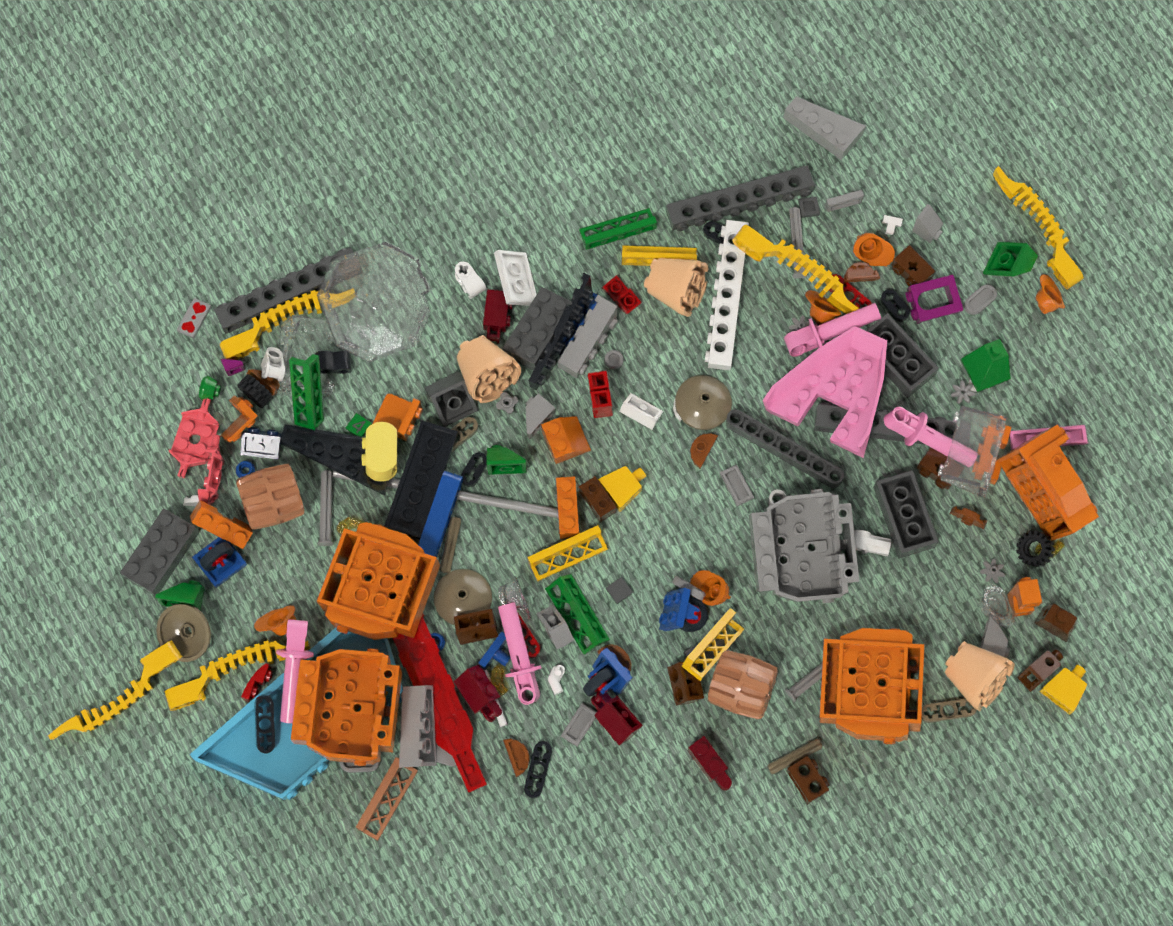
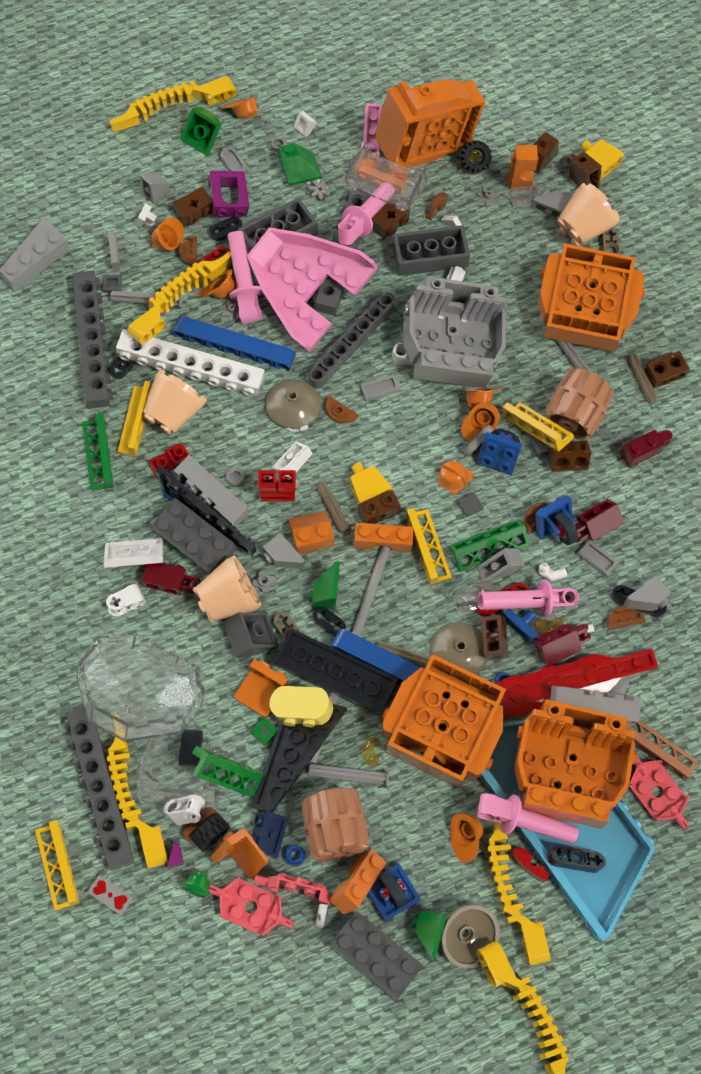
camera: 85 degrees left, 5 degrees down
(217, 272) = (63, 862): none -> yellow fence
(325, 805) = (673, 800): none -> coral plate
(539, 775) = (649, 596): none -> light grey slope
(595, 456) = (332, 507): none -> dark tan axle
(648, 571) = (454, 476): none -> orange piece
(742, 587) = (480, 395): none -> orange piece
(759, 334) = (234, 342): none -> blue beam
(948, 536) = (451, 221): none -> white tile
(1008, 336) = (278, 141): none -> light grey plate
(1041, 364) = (304, 123): none -> white tile

